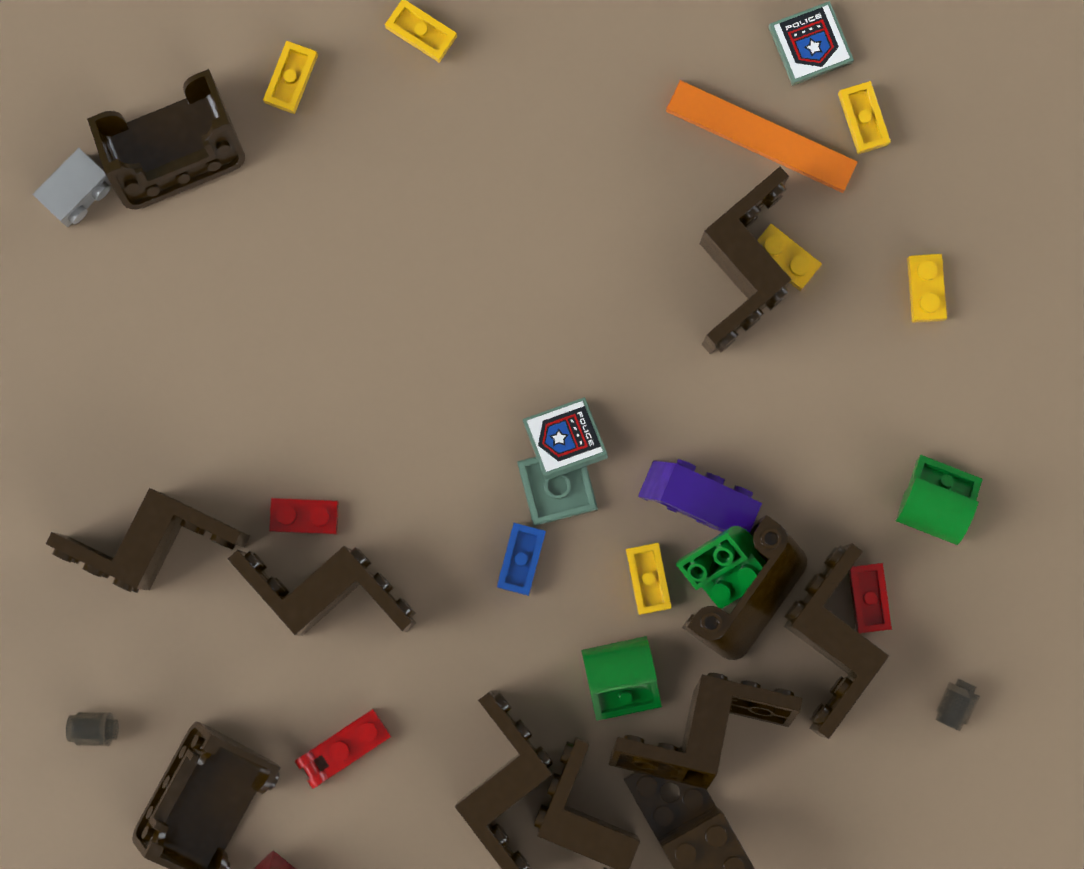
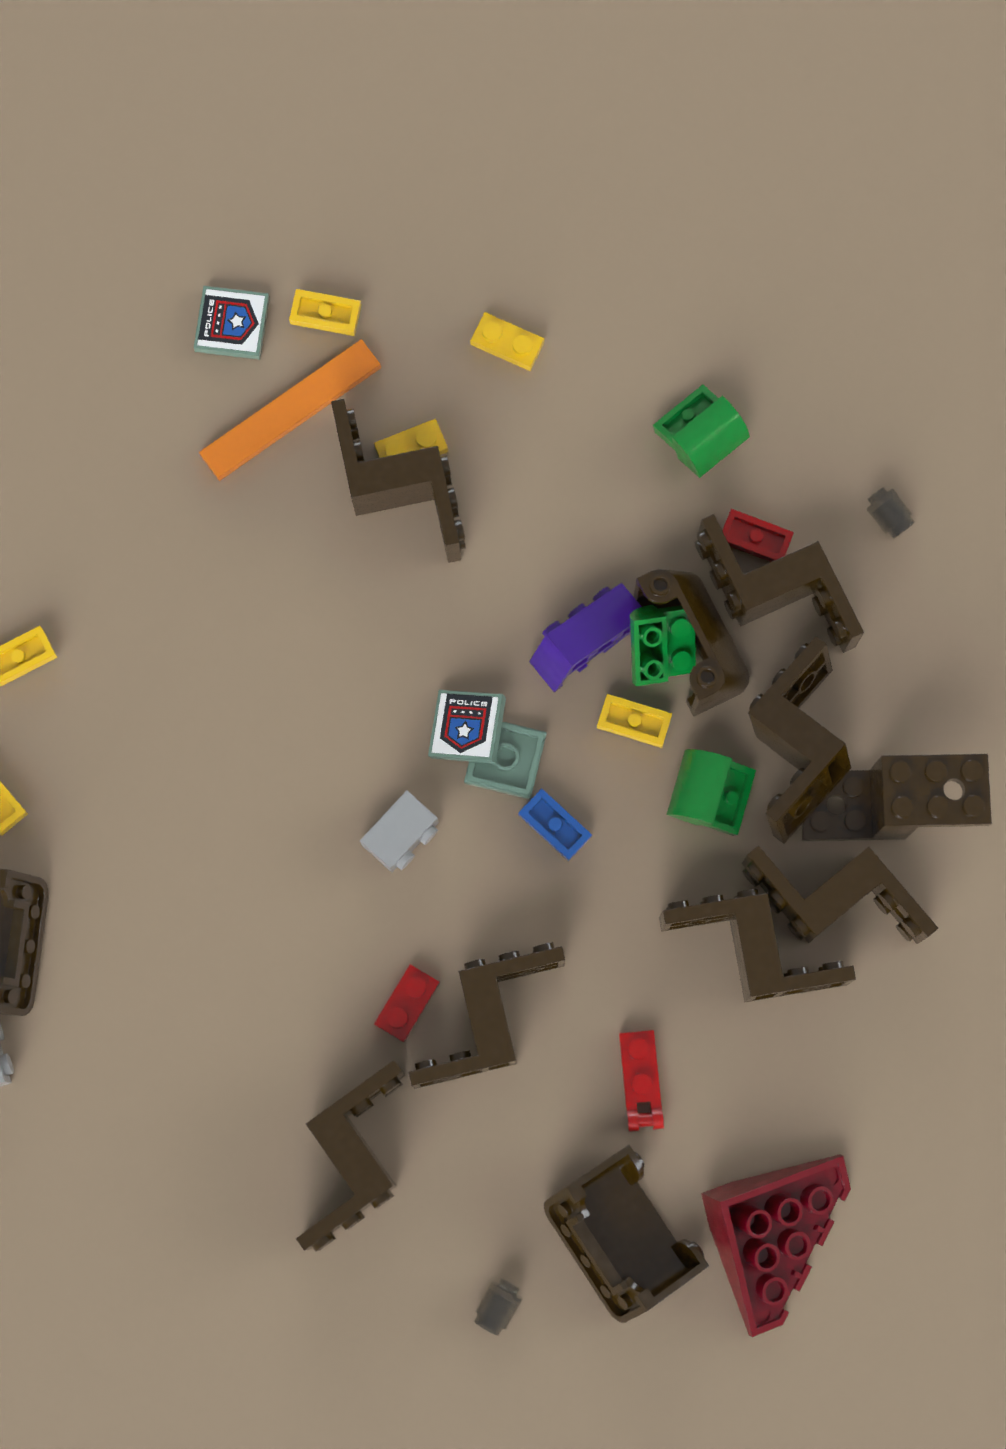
camera: 60 degrees left, 5 degrees down
(443, 431) = (400, 832): none -> light grey brick

